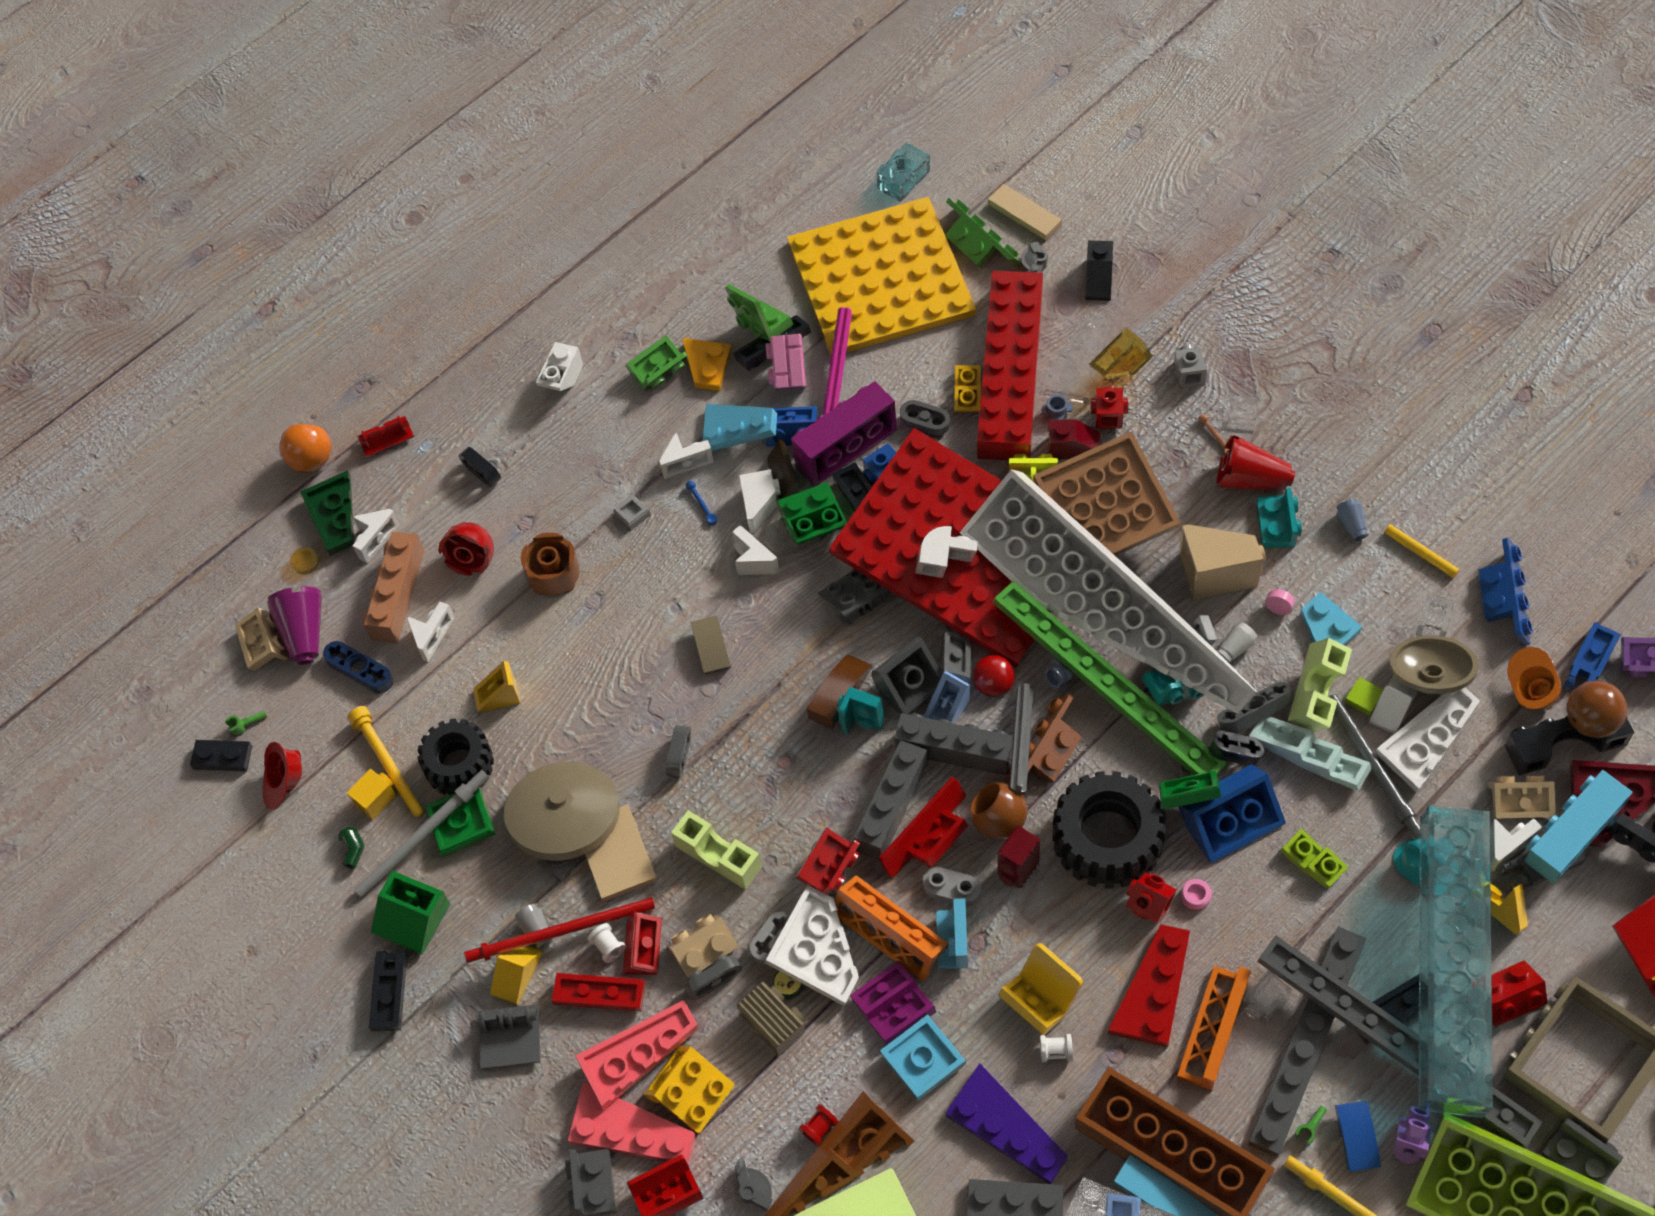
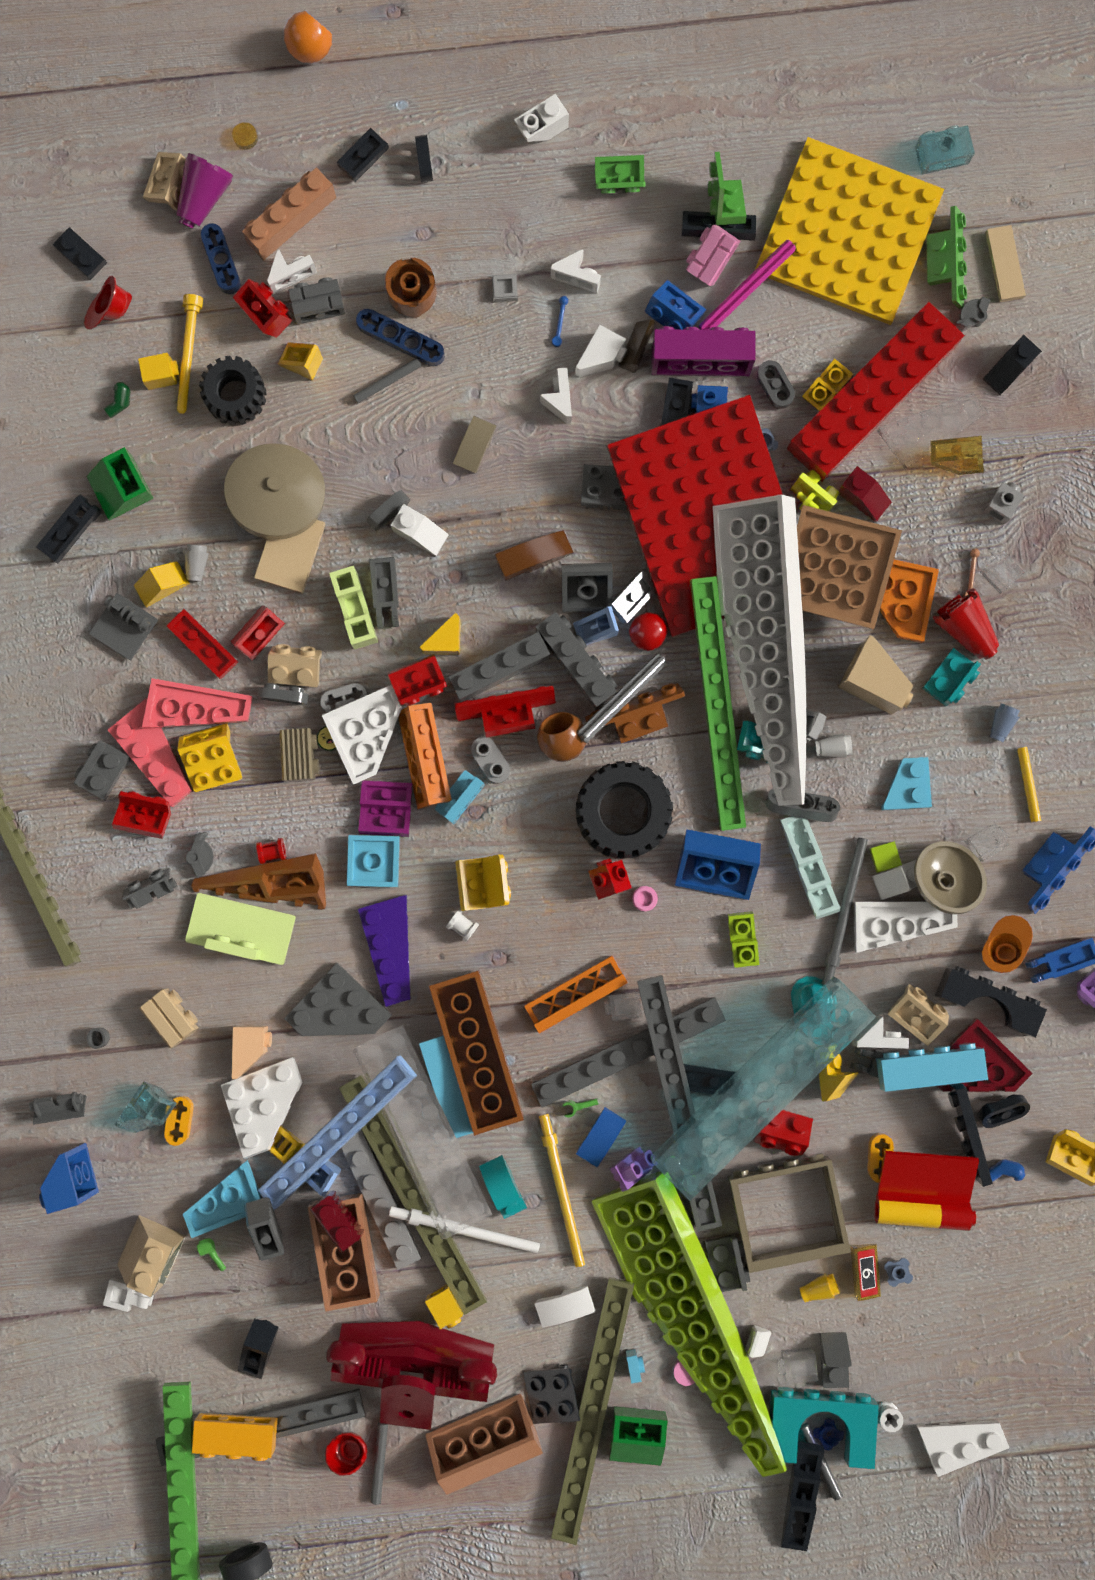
camera: 30 degrees right, 25 degrees up
(241, 724) = (110, 239): bright green hand -> none
(332, 511) = (291, 109): dark green wing -> none
(376, 530) = (314, 154): white slope -> none
(382, 438) = (376, 73): red hinge -> none
(423, 501) = (362, 155): none -> black plate
(431, 673) = (262, 307): none -> red brick
(463, 794) = (216, 425): light grey bar -> none
(464, 826) = (203, 440): green plate -> none
(467, 548) = (363, 223): red cylinder -> none
(474, 635) = (317, 300): none -> dark grey brick
(487, 951) = (146, 558): red bar -> none
(571, 607) = (402, 334): none -> dark blue beam
(588, 653) = (387, 380): none -> dark grey bar
(606, 943) = (233, 613): white bush -> none
(707, 362) = (659, 202): light orange wing -> none
(719, 746) = (419, 530): none -> white slope
(730, 816) = (384, 589): none -> dark grey hinge
(737, 425) = (633, 278): medium azure wing -> none
(811, 514) = (625, 401): green slope -> none
(822, 814) = (445, 640): none -> yellow slope
(861, 708) = (527, 578): teal bracket -> none
(939, 547) = (684, 507): white brick -> none
(1018, 857) = (545, 780): dark red brick -> none
(1057, 401) = (881, 449): sand blue plate -> none
(1058, 674) = (691, 668): sand blue plate -> none
(1109, 407) = (913, 489): red brick -> none
(1153, 994) = (555, 942): red wing -> none
(1189, 489) = (909, 599): none -> orange plate
(1189, 790) = (698, 830): green plate -> none
(1236, 748) = (760, 825): black beam -> none
(1280, 602) = (893, 741): bright pink tile -> none
(1323, 664) = (871, 816): yellowish green arch -> none
(1596, 709) = (1021, 1006): dark orange helmet -> none
(1610, 947) = (874, 1153): none -> light orange beam

